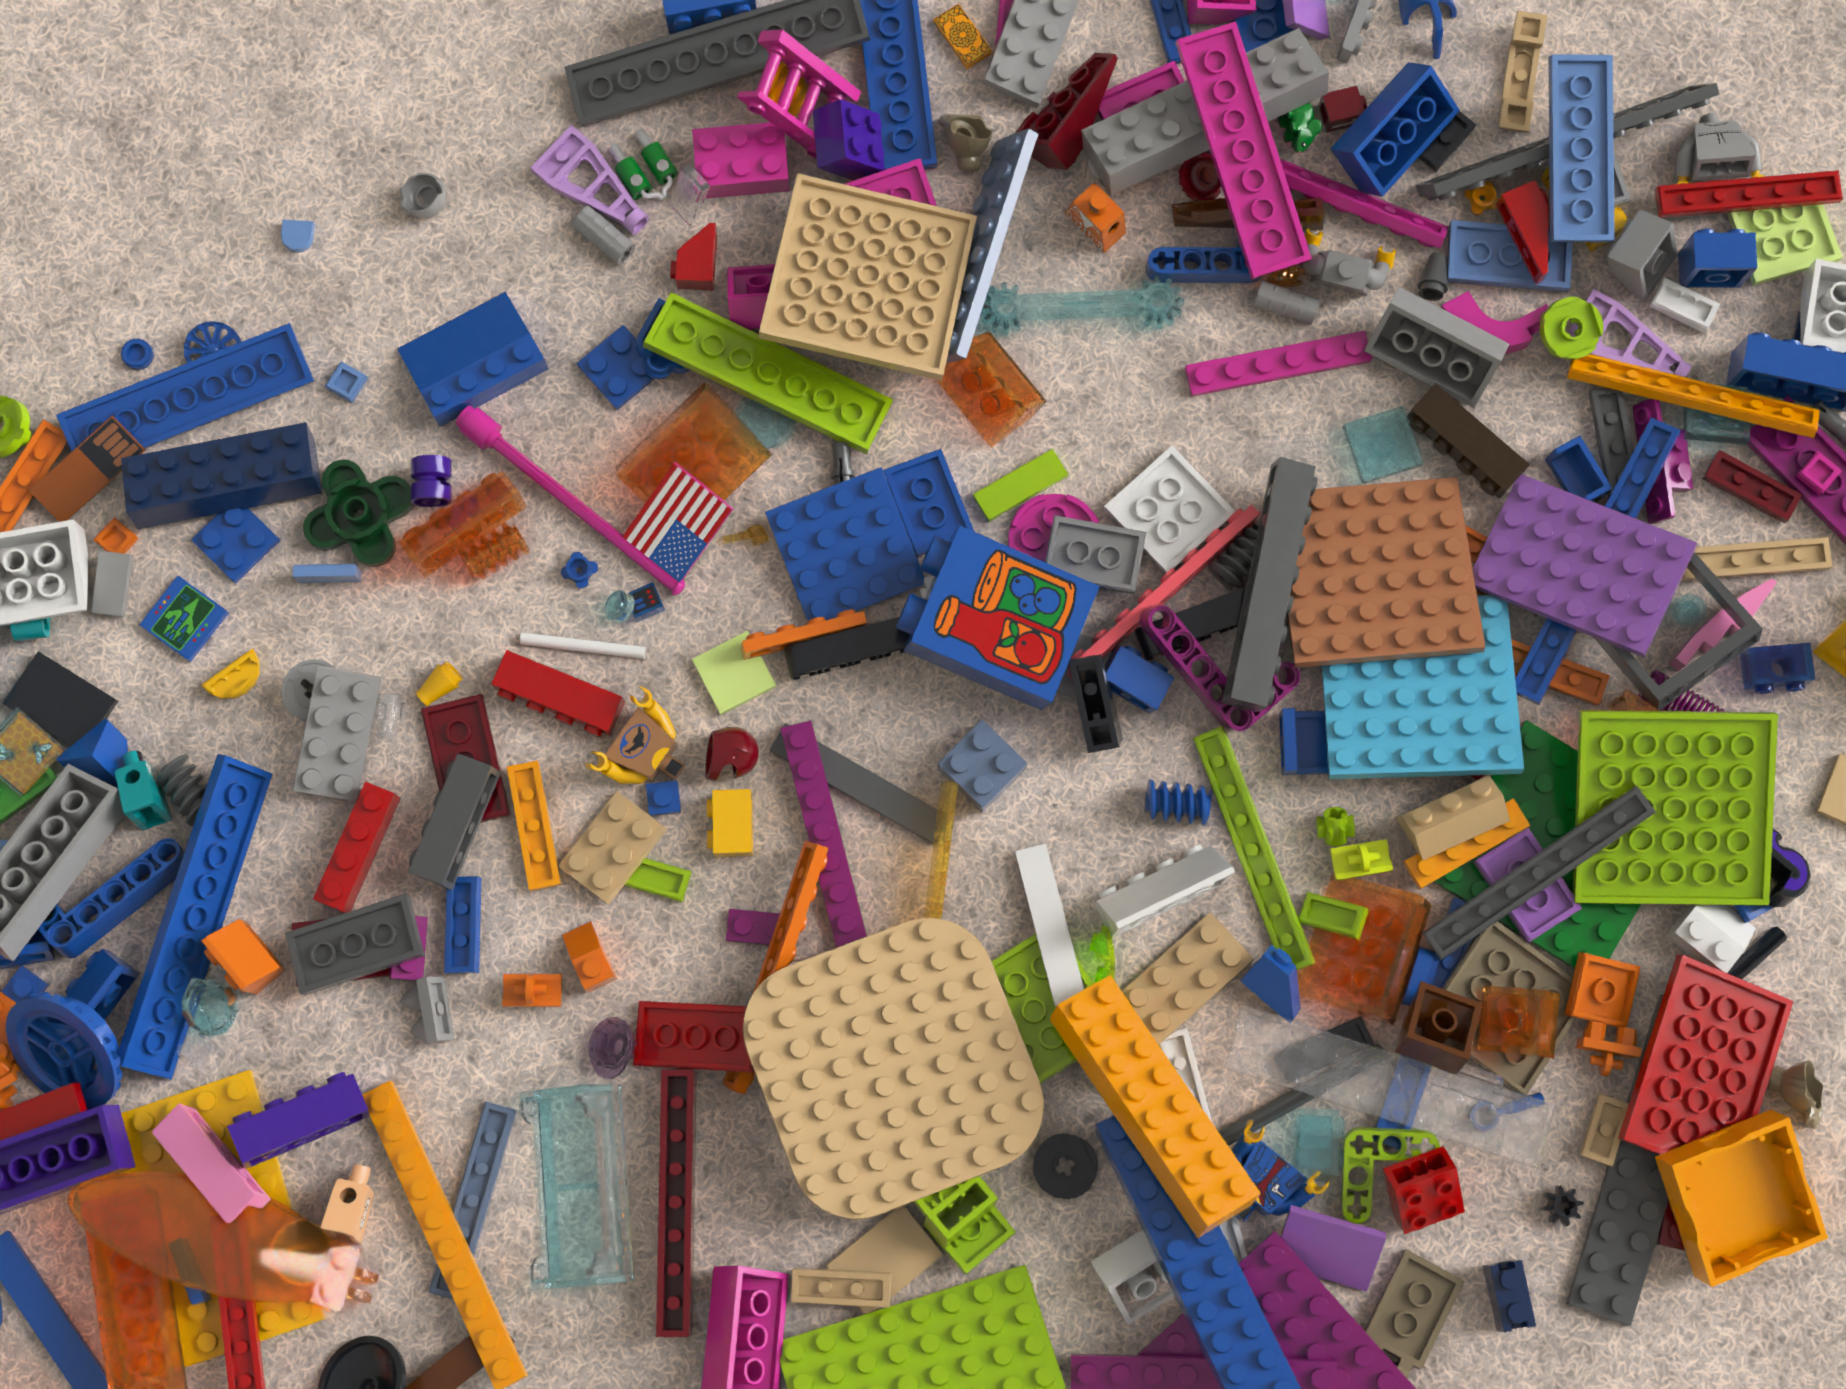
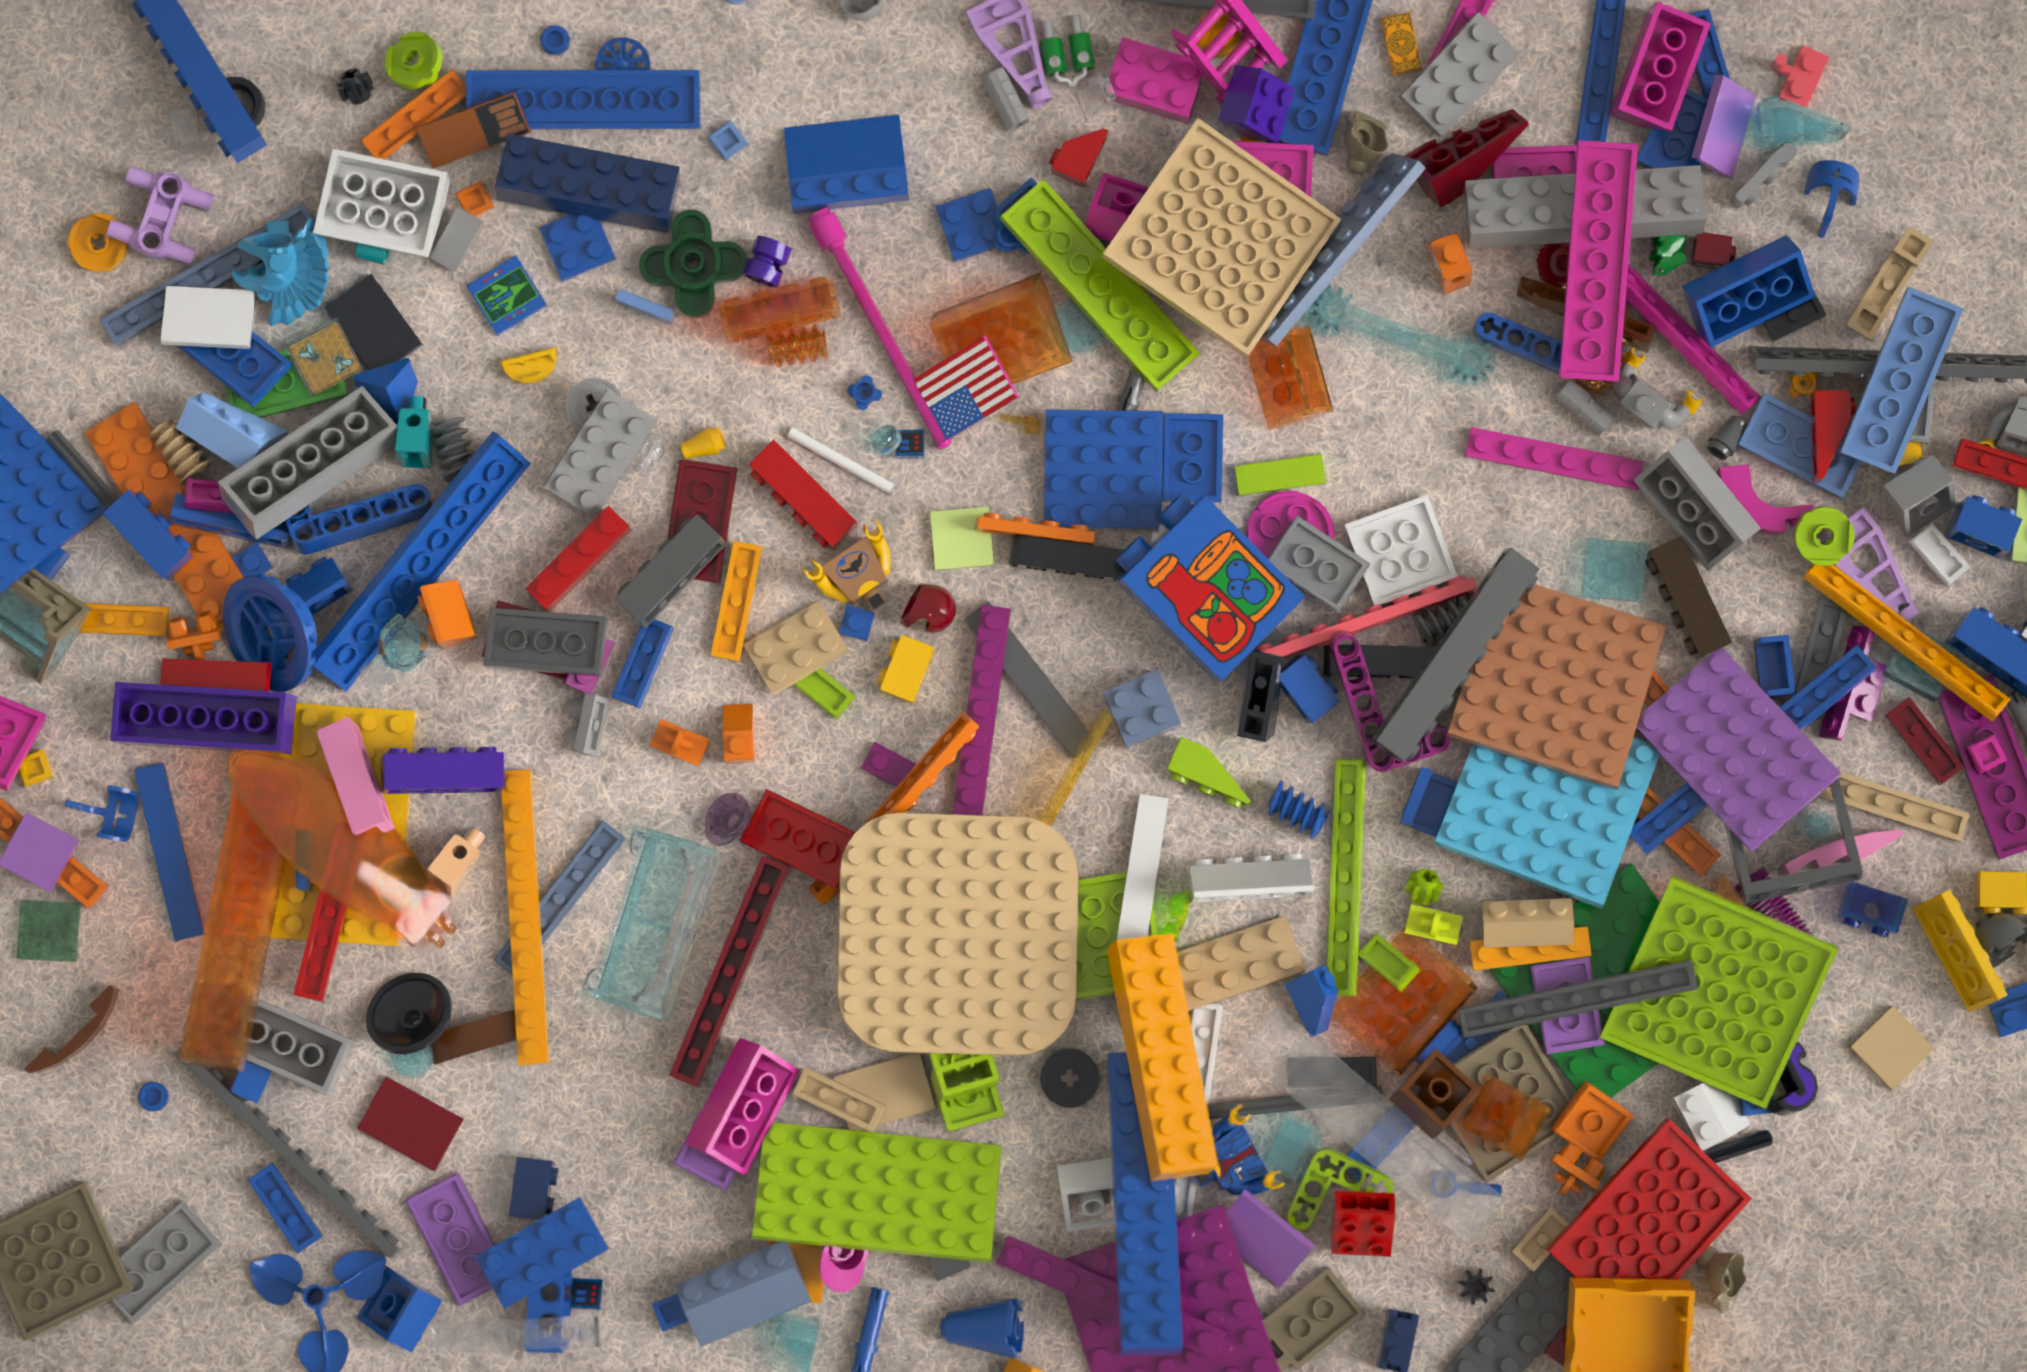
camera: 25 degrees right, 5 degrees up
(1064, 799) = (1199, 765): none -> lime slope

